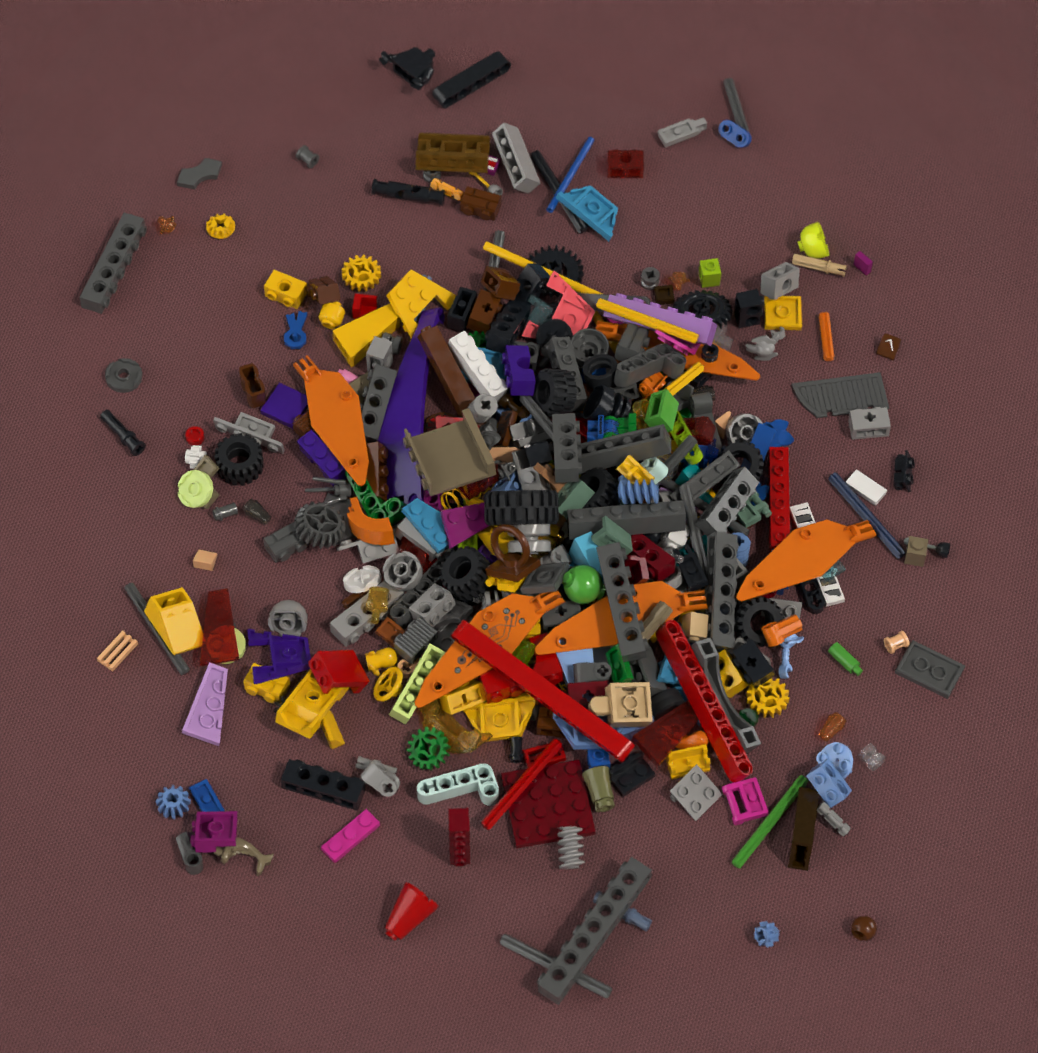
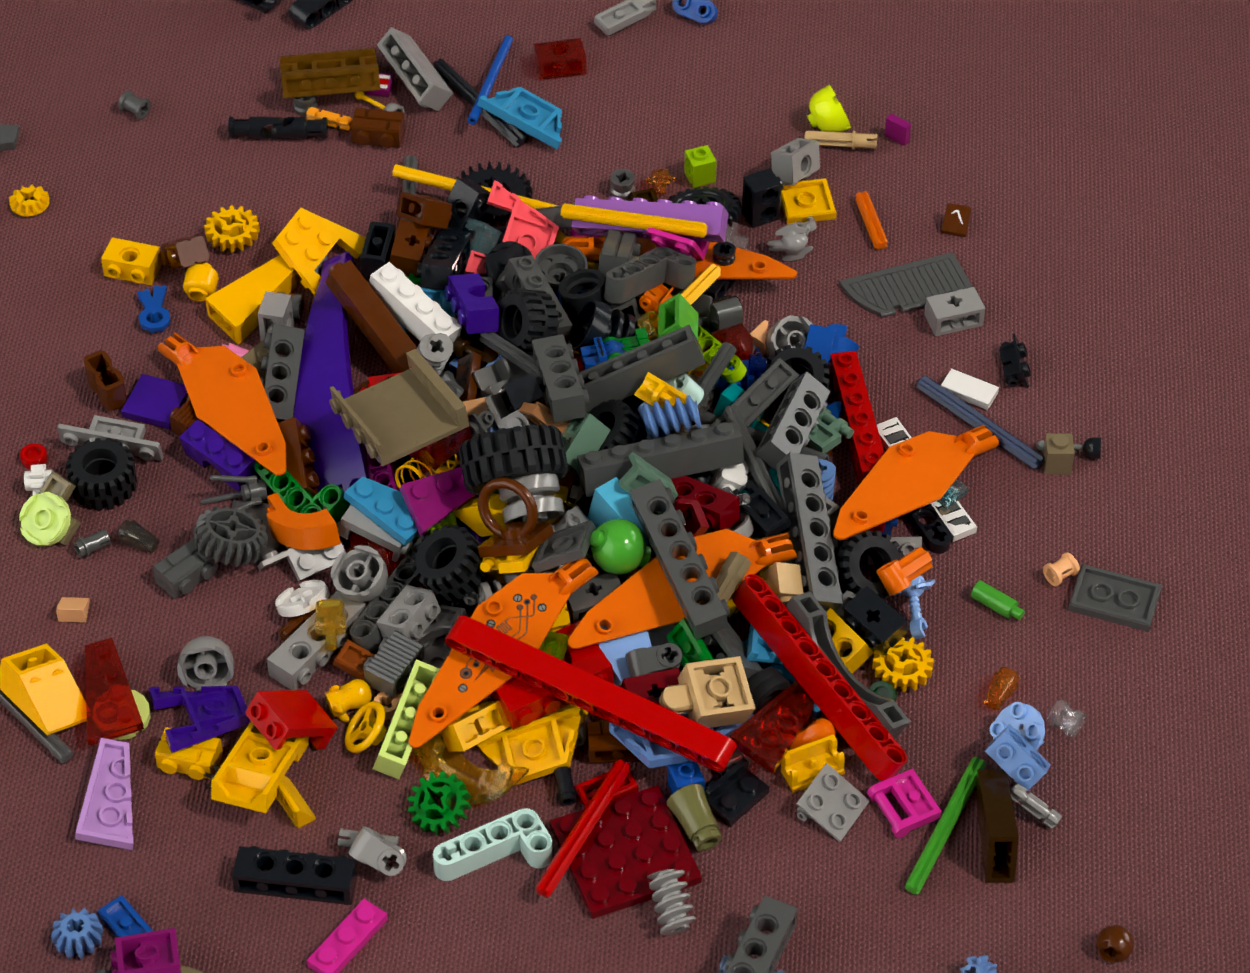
camera: 10 degrees left, 10 degrees down
(363, 305) = (241, 263): red panel -> none
(459, 836) = (509, 906): dark red brick -> none

